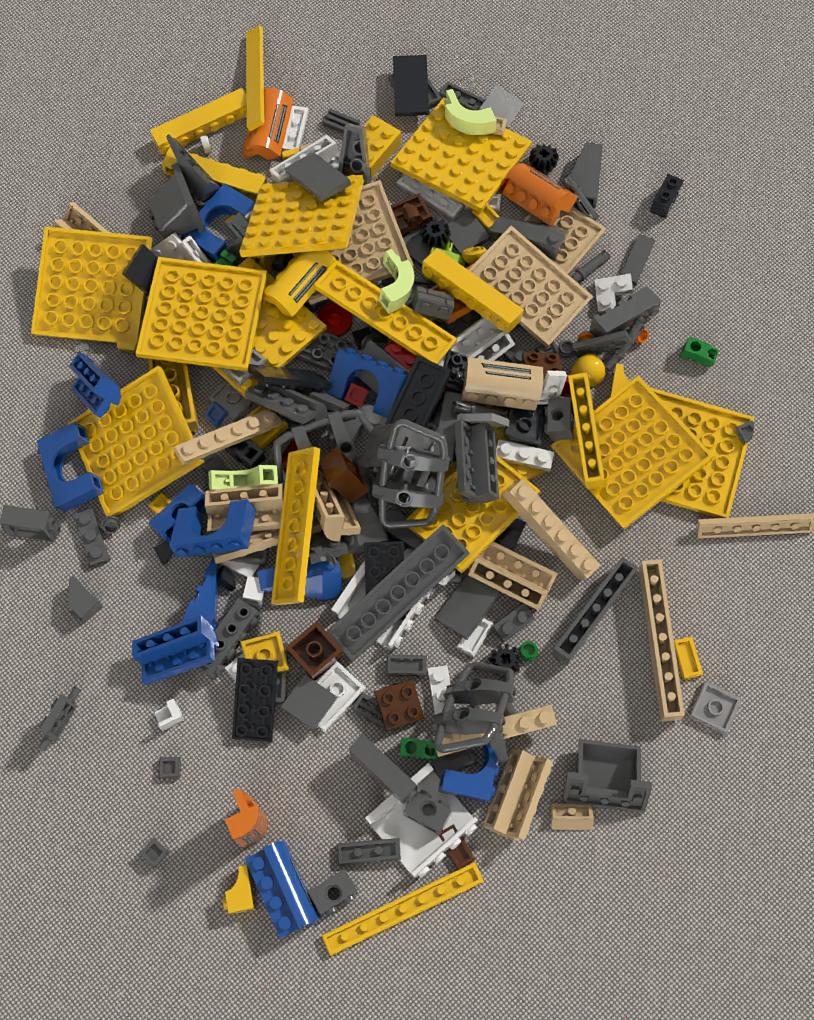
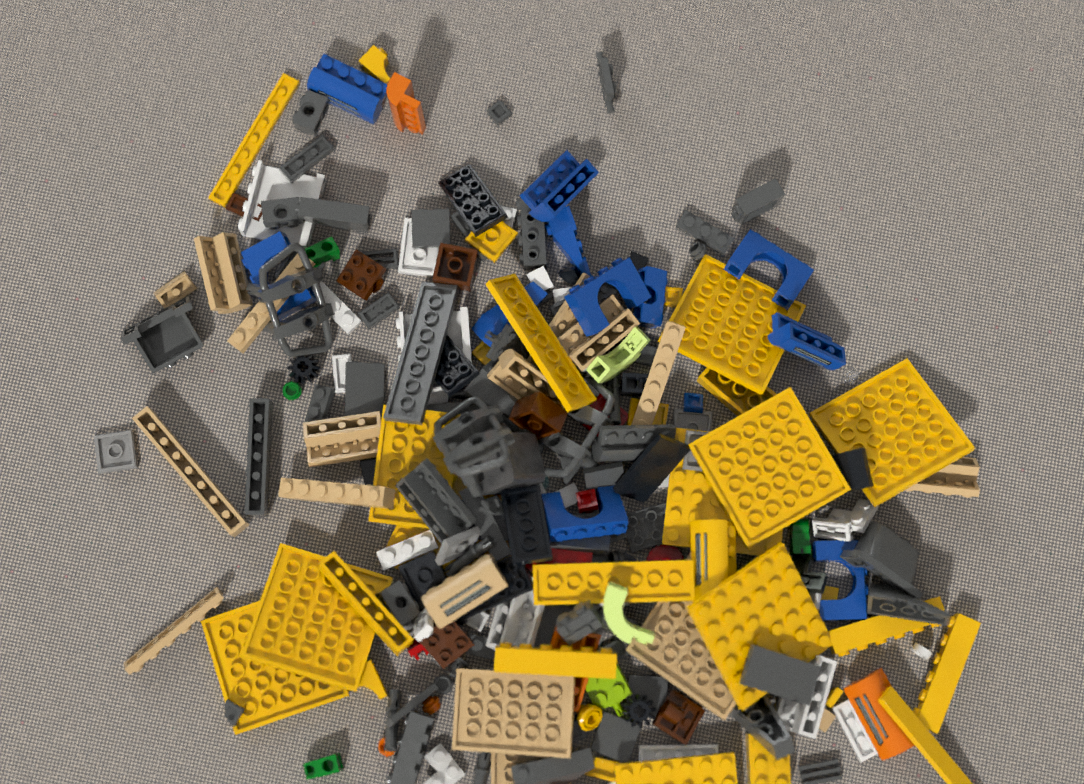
camera: 140 degrees right, 10 degrees up
(81, 601) = (668, 178): dark grey slope -> none
(127, 347) = (814, 404): yellow tile -> none
(154, 852) = (460, 49): dark grey plate -> none
(169, 715) = (529, 146): white panel -> none
(593, 366) = (409, 674): yellow helmet -> none
(687, 658) = (162, 476): yellow tile -> none

